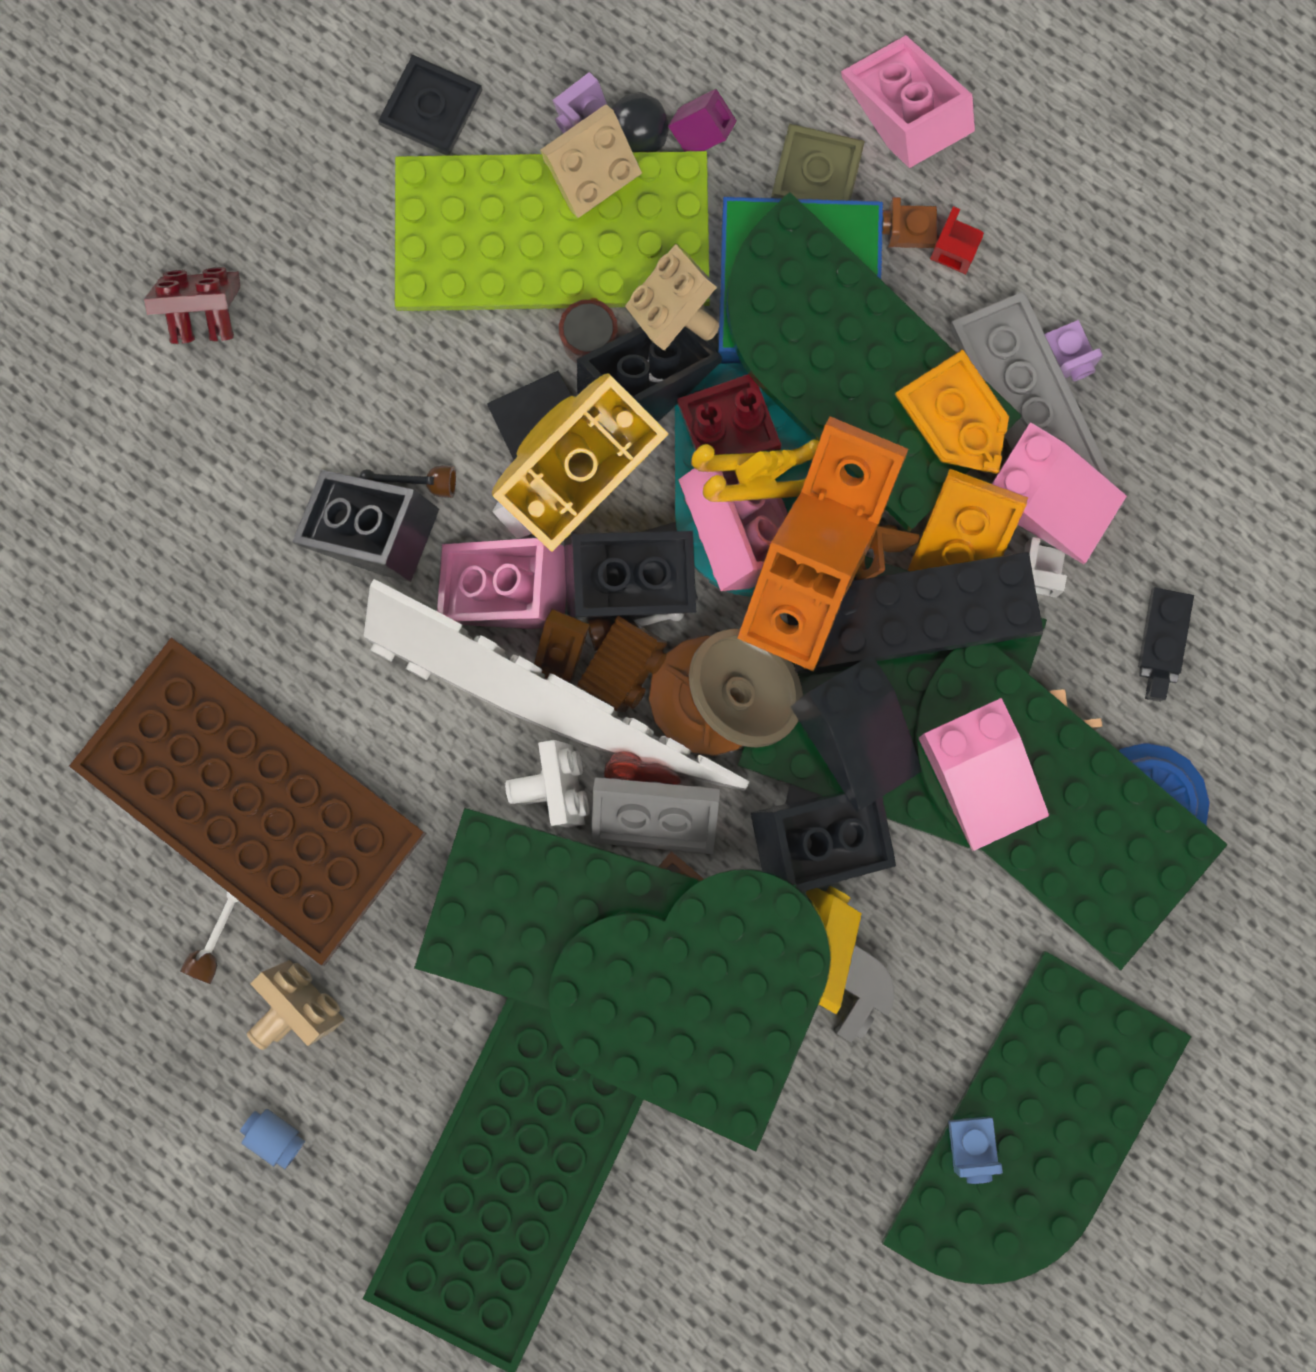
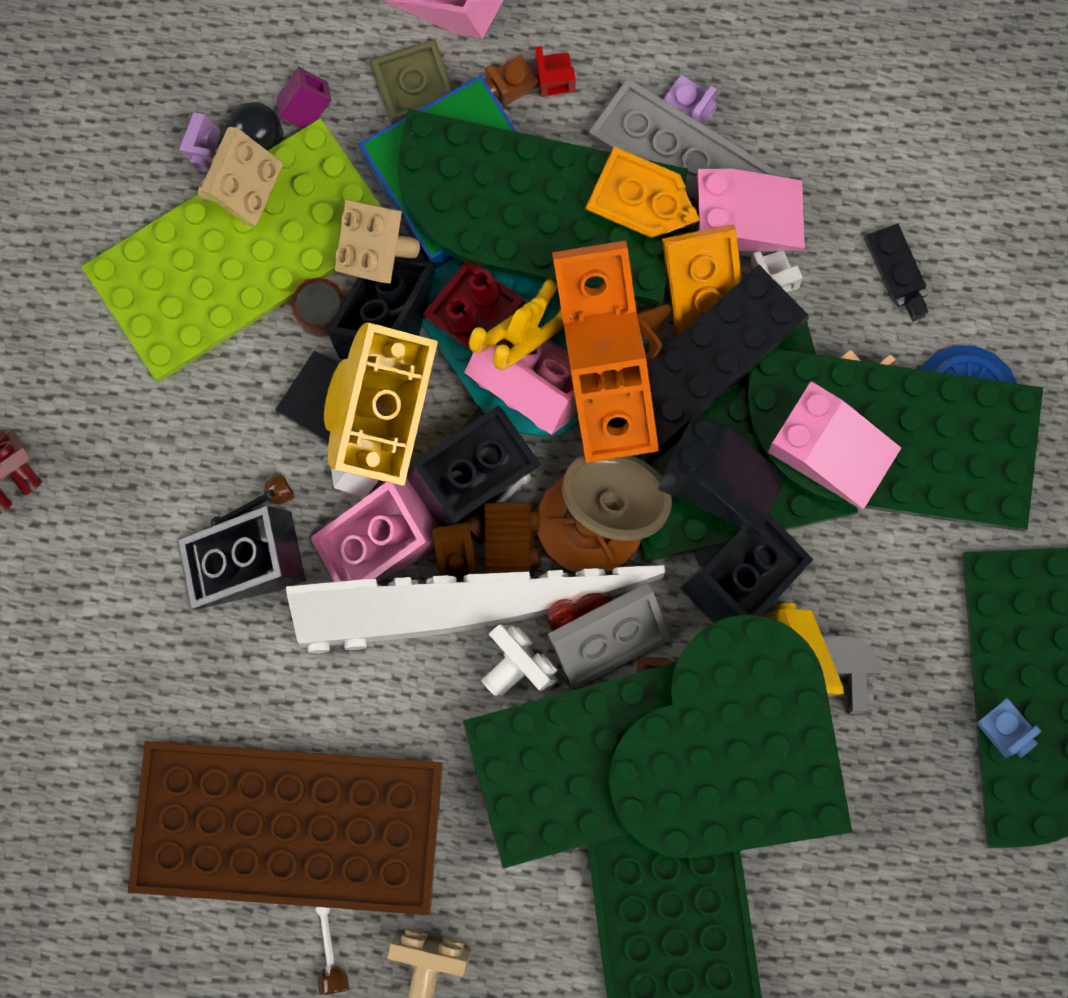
camera: 35 degrees left, 5 degrees down
(430, 105) = (82, 211): black tile -> none

